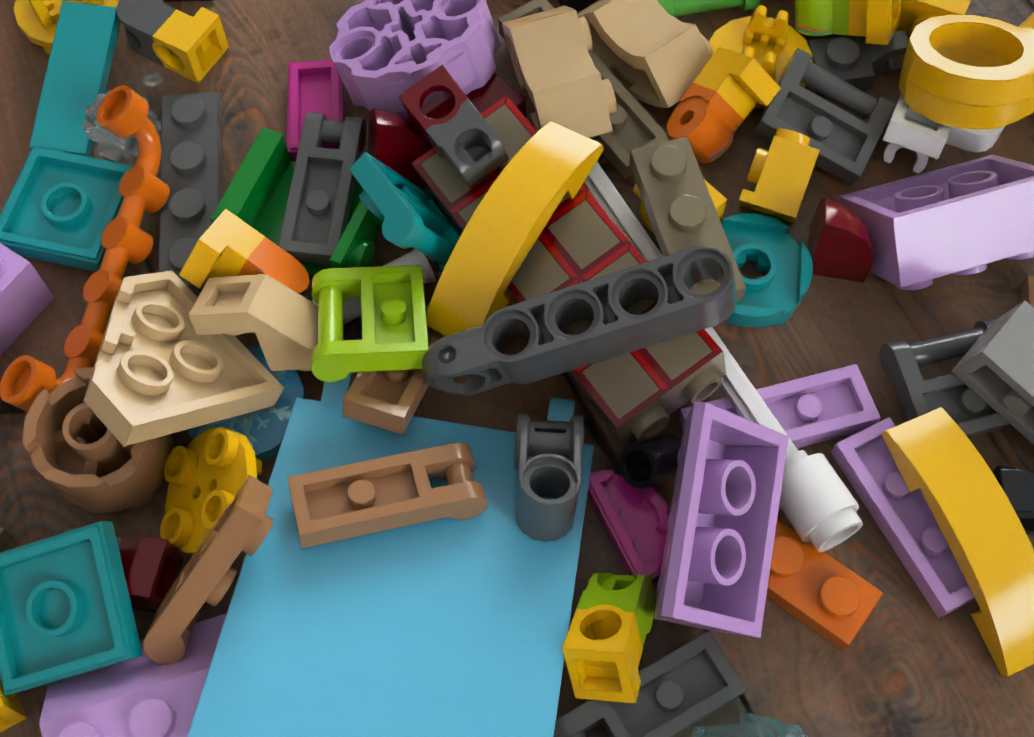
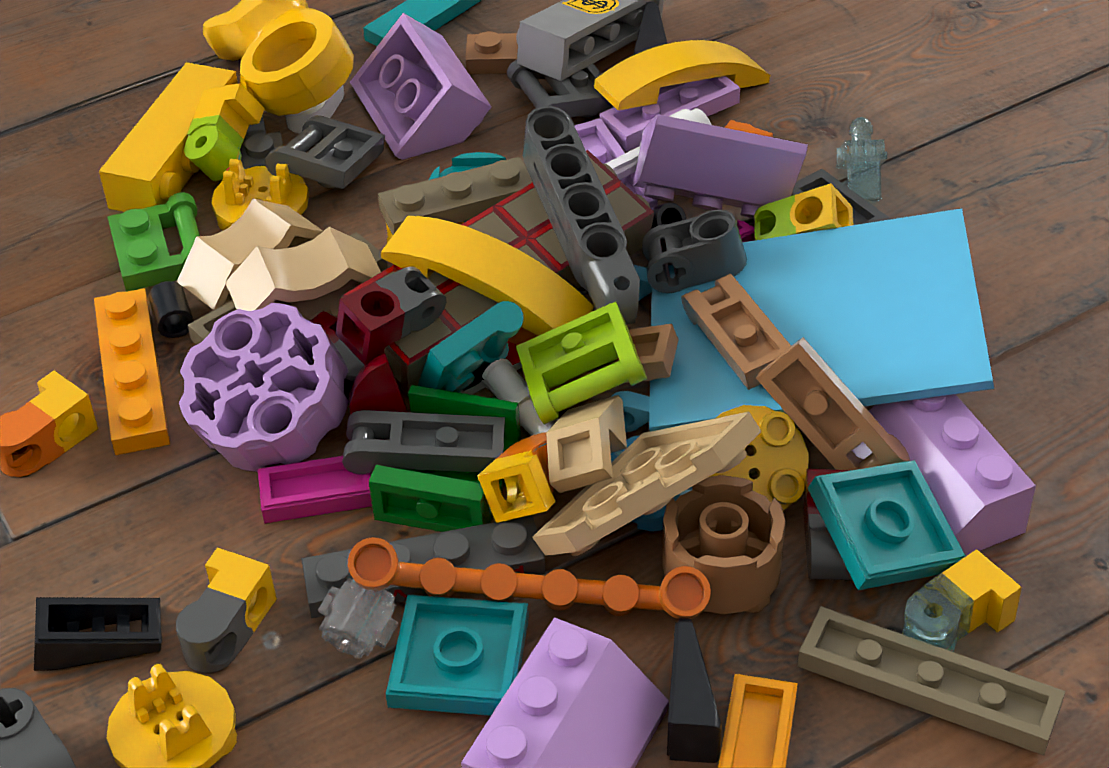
camera: 95 degrees left, 20 degrees down
(74, 76) = (290, 681): teal tile -> none
(720, 103) = (319, 201): leg -> none
(780, 176) = (394, 160): yellow brick -> none
(839, 243) = (444, 139): dark red brick -> none
(915, 133) = (347, 102): white tile -> none

